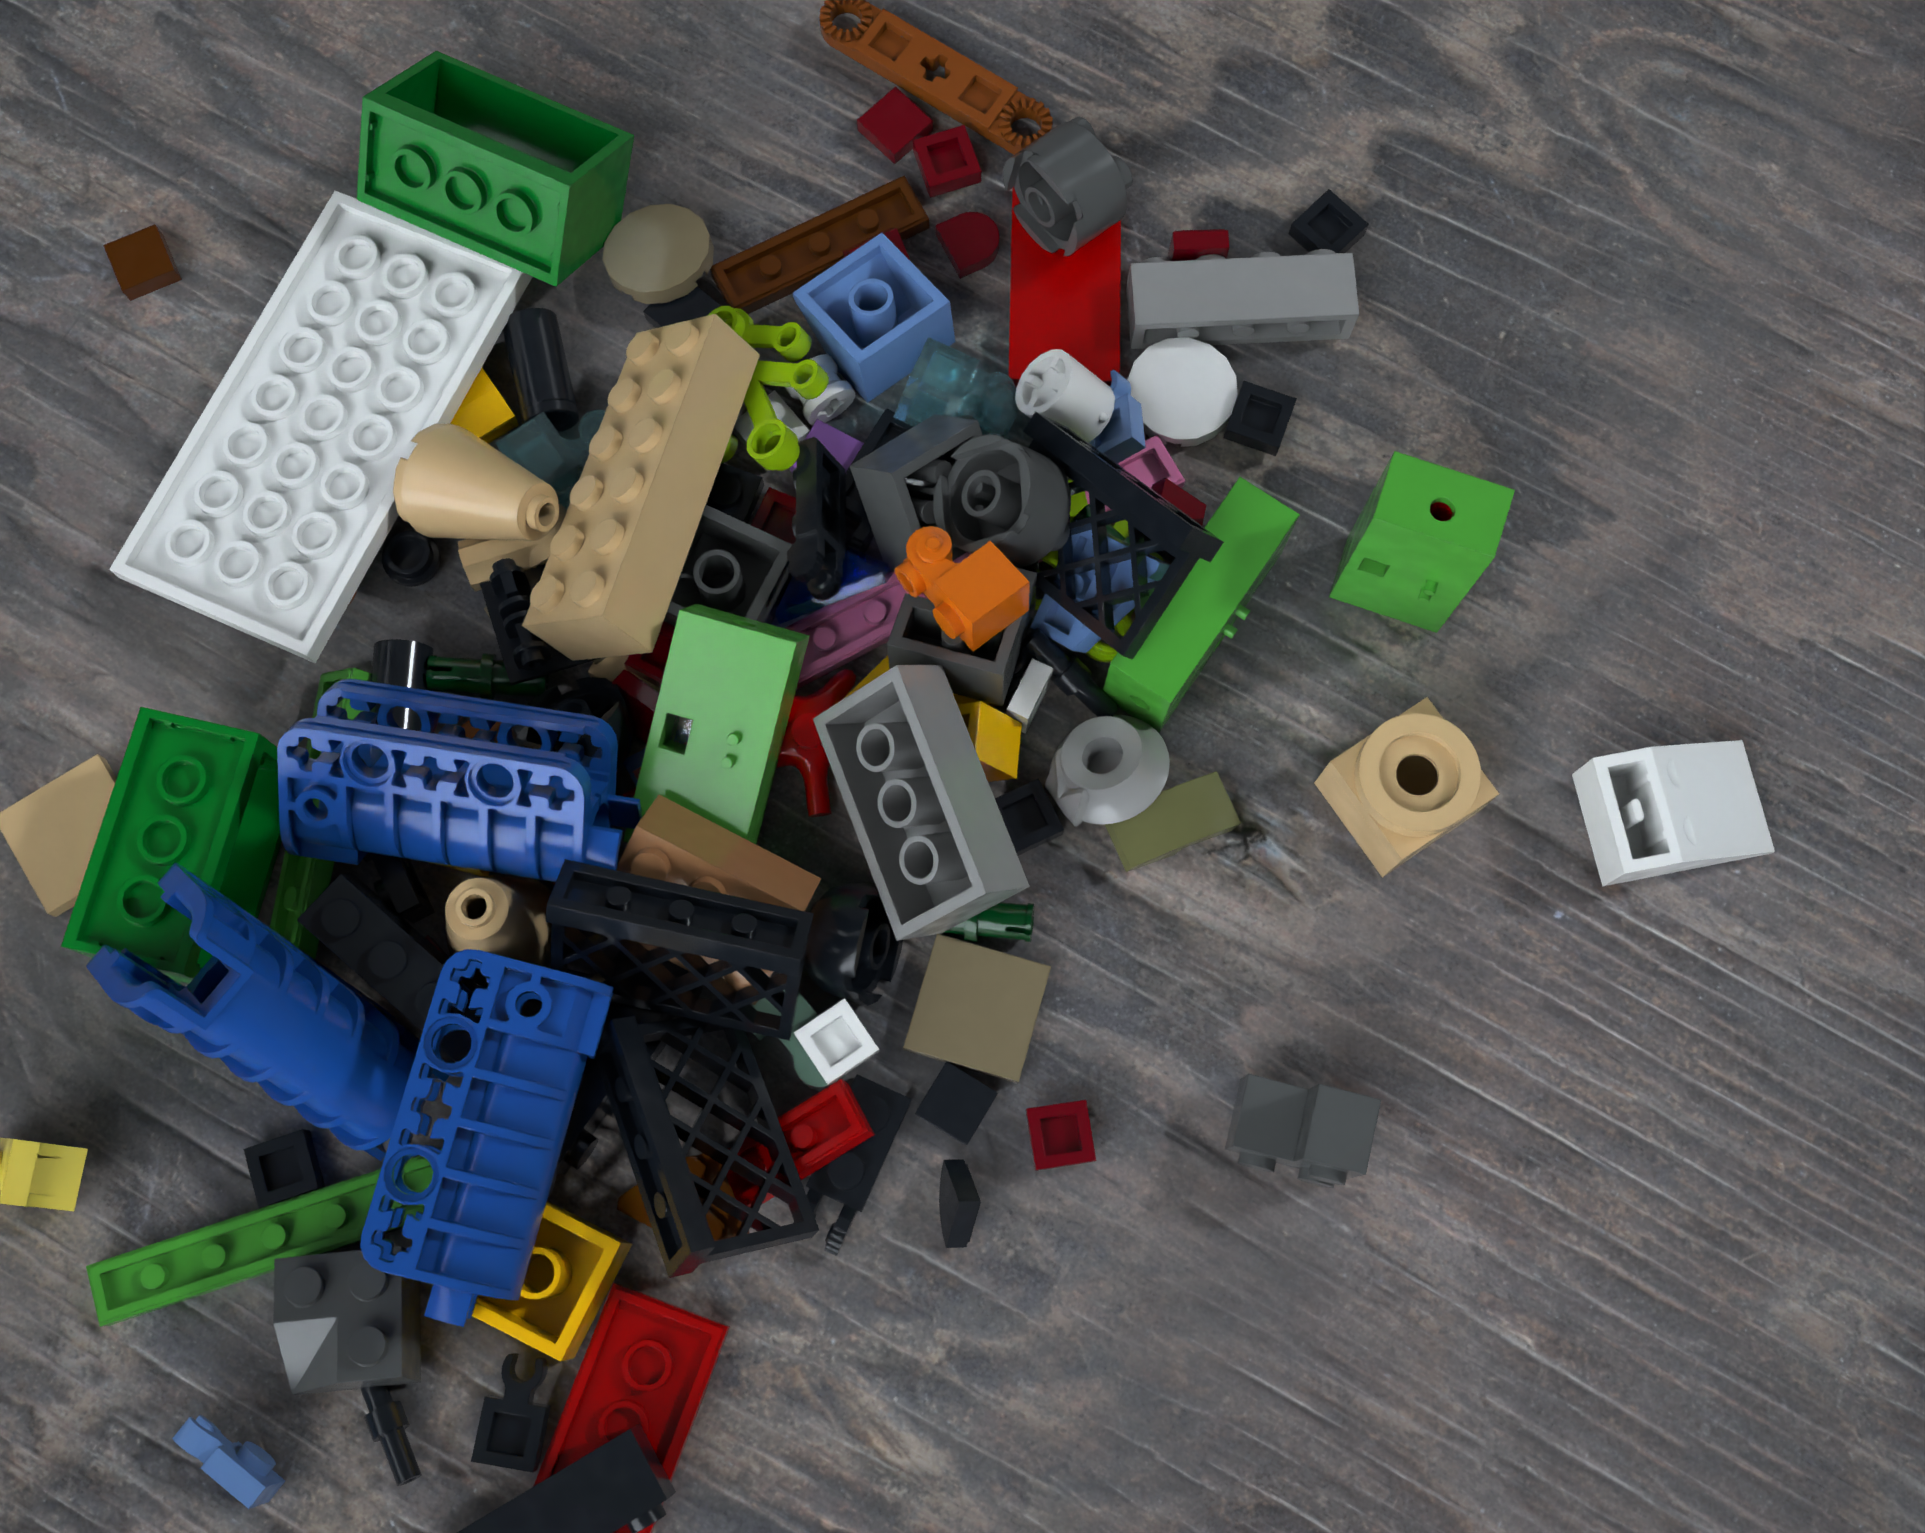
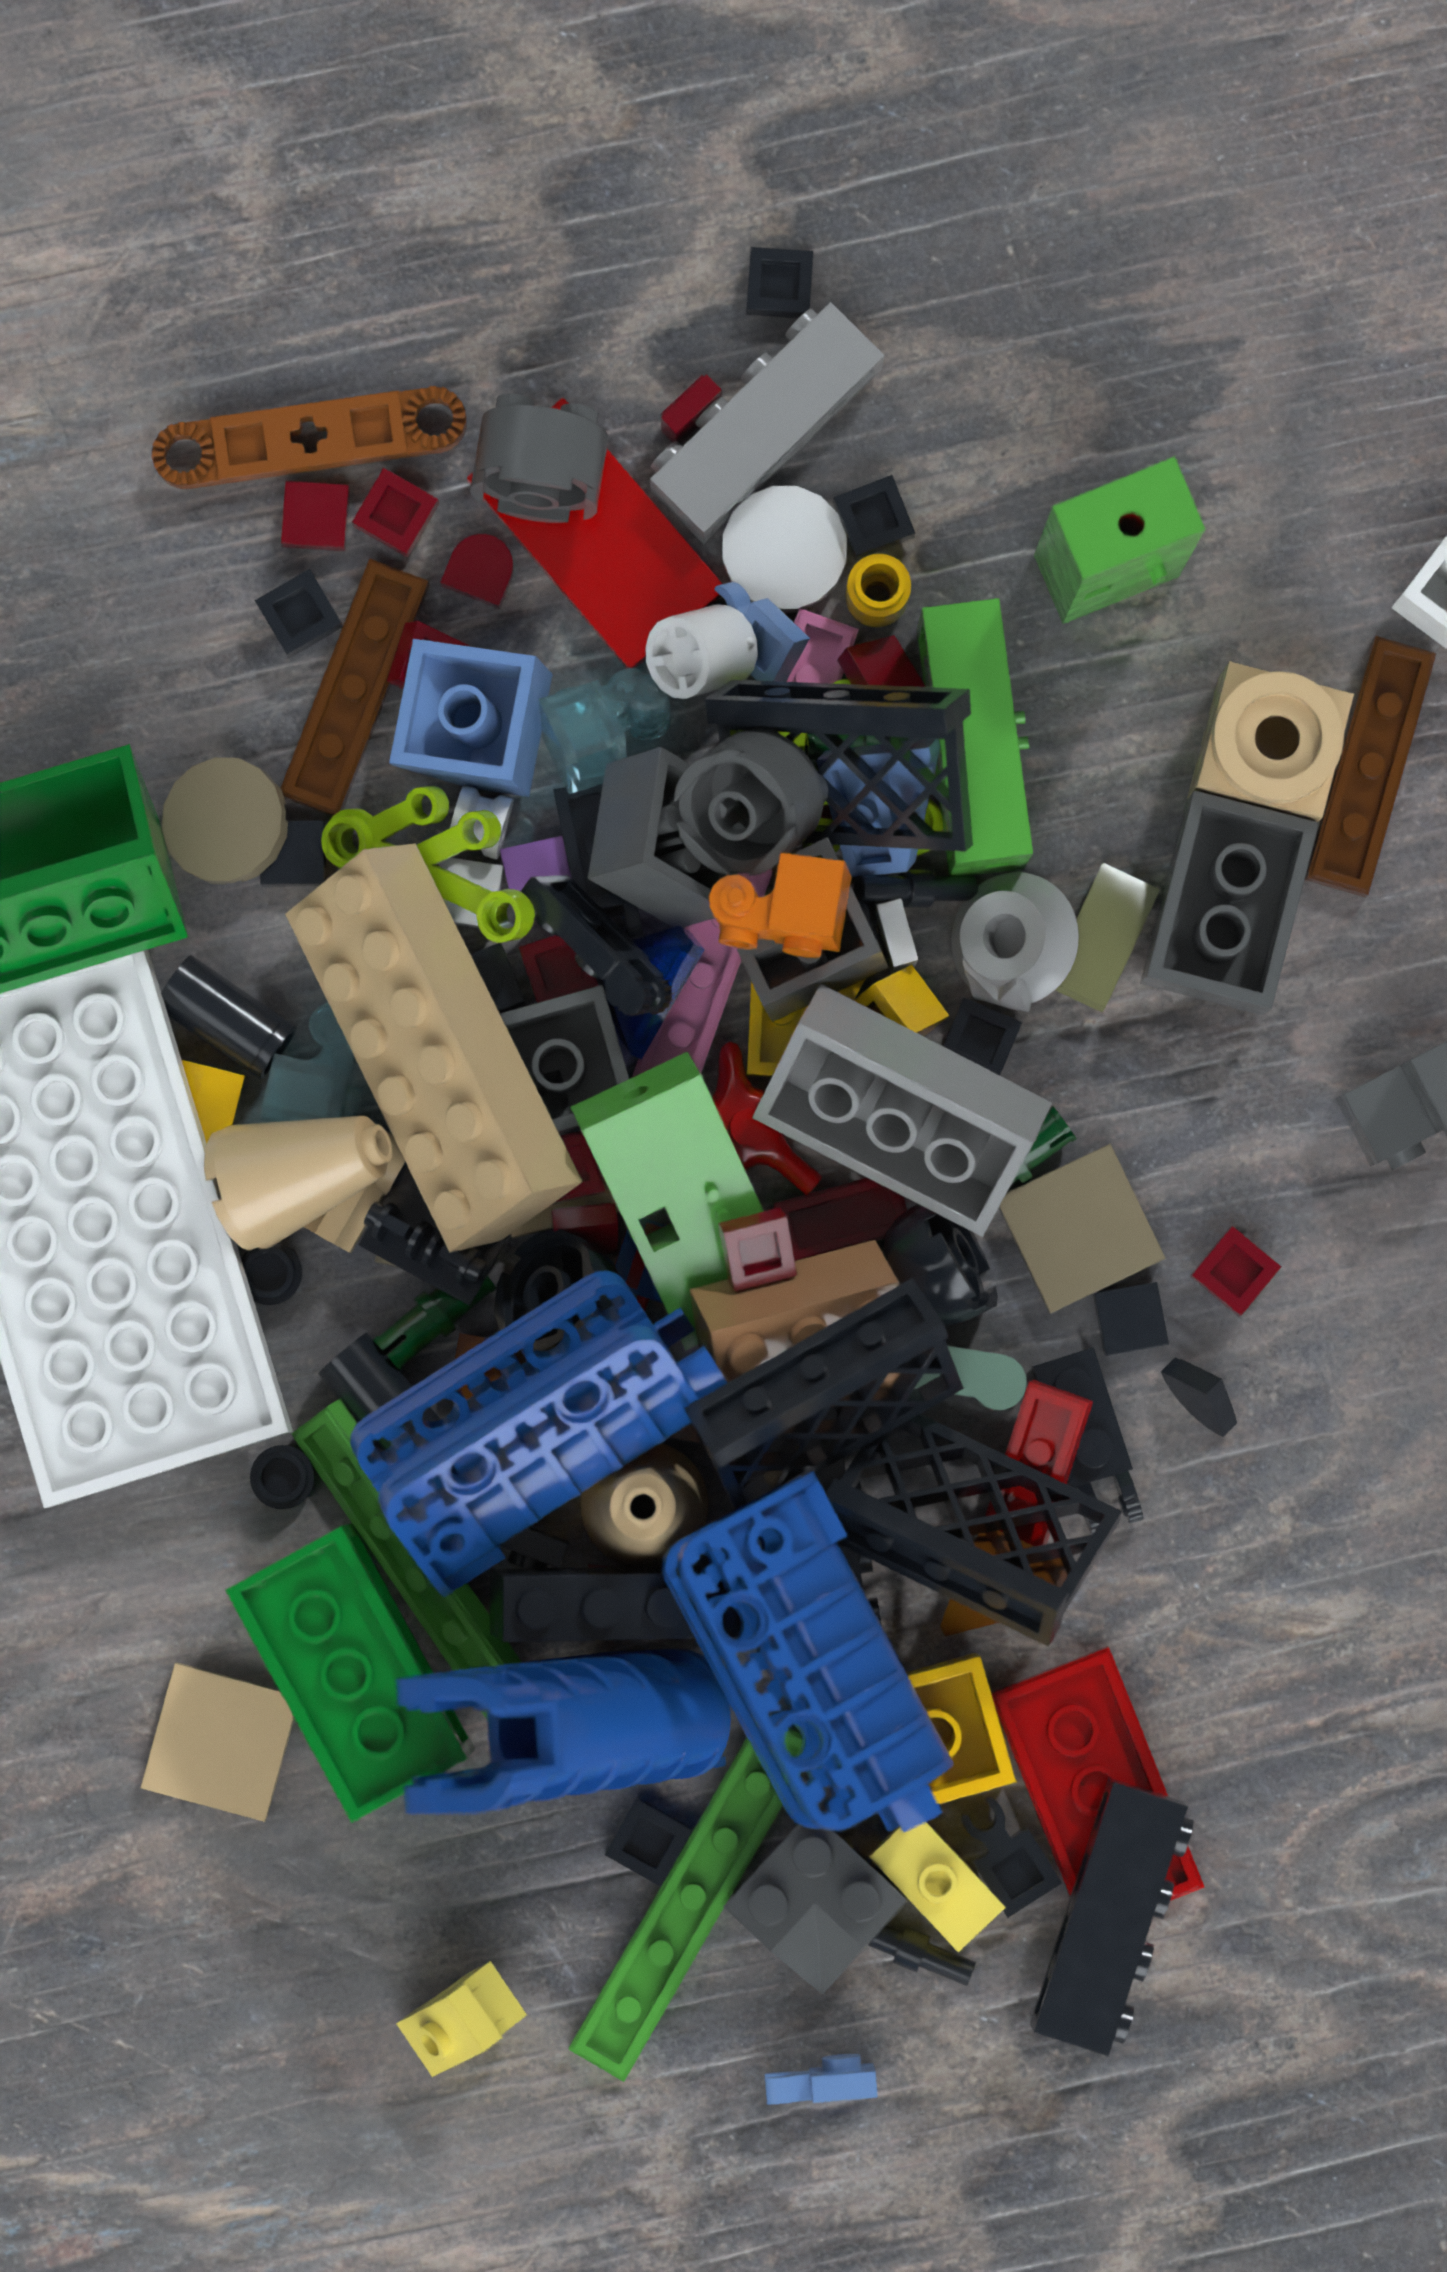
camera: 45 degrees left, 10 degrees up
(288, 695) = (282, 1477): none -> black plate
(444, 1385) = (937, 1883): none -> light yellow brick
(728, 804) = (757, 1249): none -> plate
(816, 848) = (840, 1217): none -> dark red tile
(827, 170) = (299, 613): none -> black plate
(836, 1041) = (1001, 1356): white tile -> none
(1220, 459) = (878, 571): none -> yellow brick
(1282, 869) = (1229, 903): none -> dark grey brick
(1464, 869) = (1370, 766): none -> reddish brown tile

